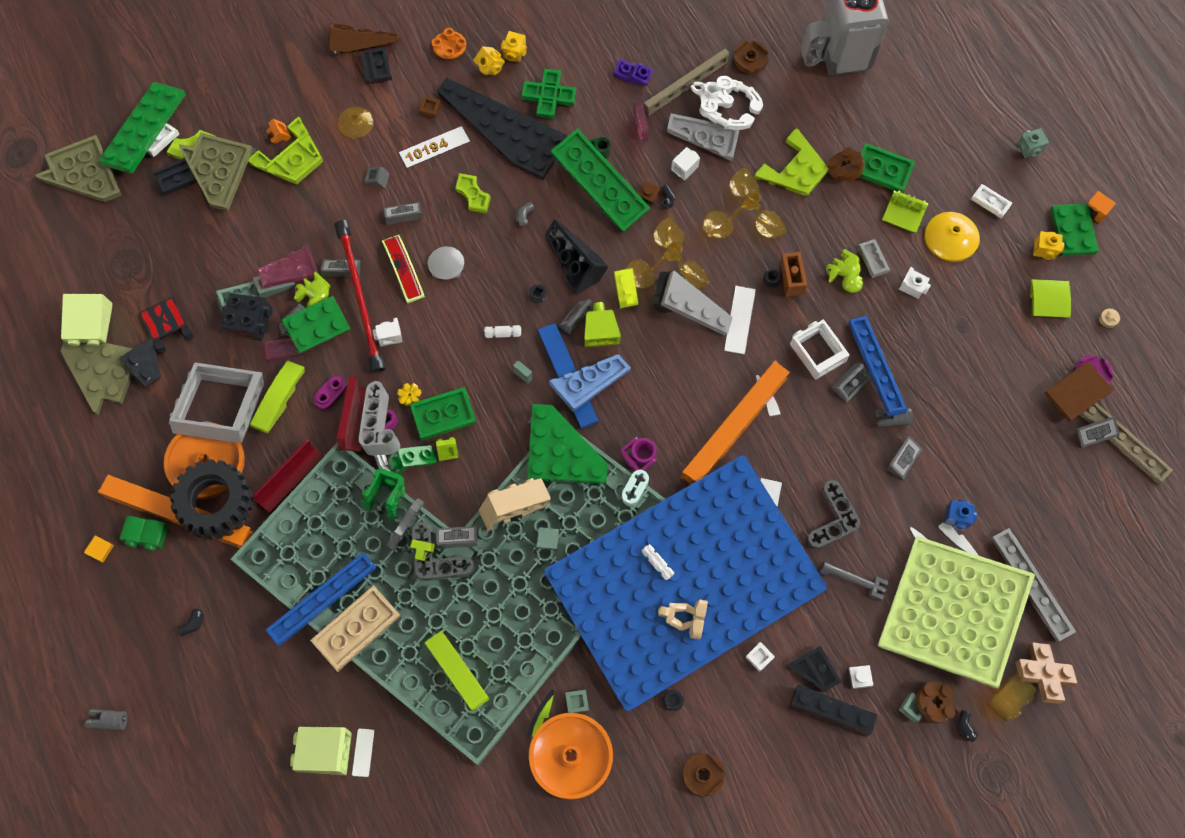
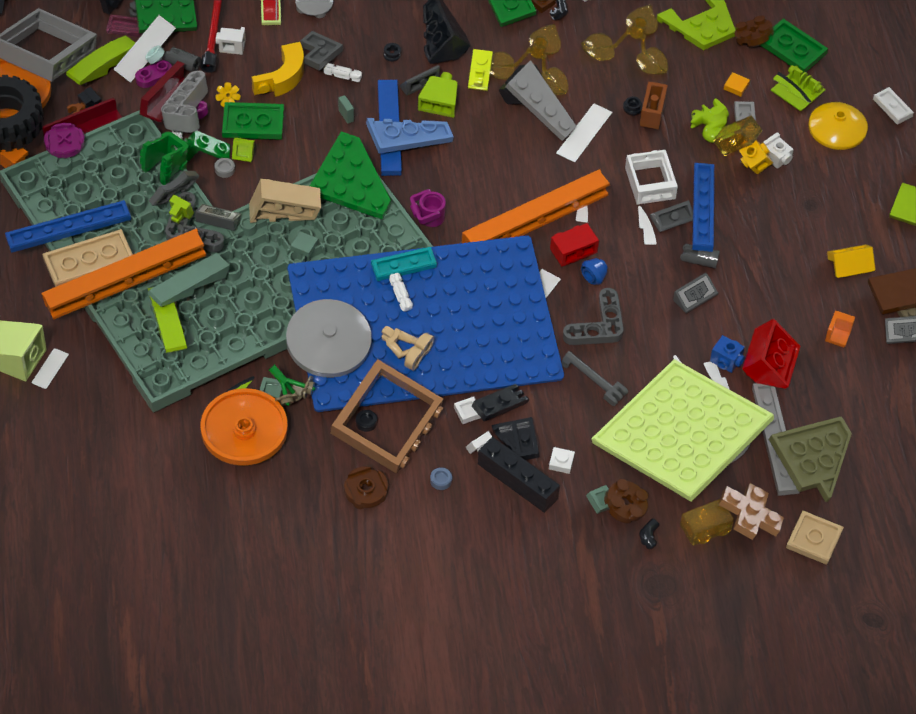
camera: 20 degrees right, 15 degrees down
(279, 504) = (64, 140): none -> magenta tile
(283, 447) = (86, 99): none -> black piece
(311, 370) = (135, 57): none -> white sticker
(324, 375) = (155, 54): none -> light aqua tile
(351, 368) = (191, 61): none -> dark grey hinge
(397, 638) = (124, 274): none -> orange tile
(436, 472) = (224, 167): none -> light grey tile
(456, 354) = (284, 78): none -> yellow arch
(461, 623) = (184, 283): none -> sand green slope
(477, 314) = (321, 48): none -> dark grey plate
(598, 699) = (294, 392): none -> plant
(612, 636) = (328, 338): none -> light grey dish
(631, 485) = (410, 230): light aqua beam -> none
(648, 531) = (404, 263): none -> teal tile
(664, 690) = (365, 446): none -> medium nougat window
(764, 737) = (441, 478): none -> sand blue tile
(783, 446) = (574, 244): none -> red brick
(784, 639) = (499, 402): none -> black hinge
(785, 689) = (478, 443): none -> white plate
(810, 467) = (594, 271): none -> blue cone
(831, 398) = (649, 236): none -> white sticker
(851, 224) = (736, 84): none -> light orange tile
(880, 283) = (737, 135): none -> clear yellow brick
(901, 212) = (792, 87): none -> sticker
(907, 299) = (756, 157): none -> yellow brick
(998, 503) = (771, 355): none -> red slope
(1021, 373) = (852, 260): none -> yellow panel
(1039, 450) = (840, 329): none -> orange panel
(1075, 593) = (813, 454): none -> olive wing
(1106, 675) = (814, 537): none -> tan plate

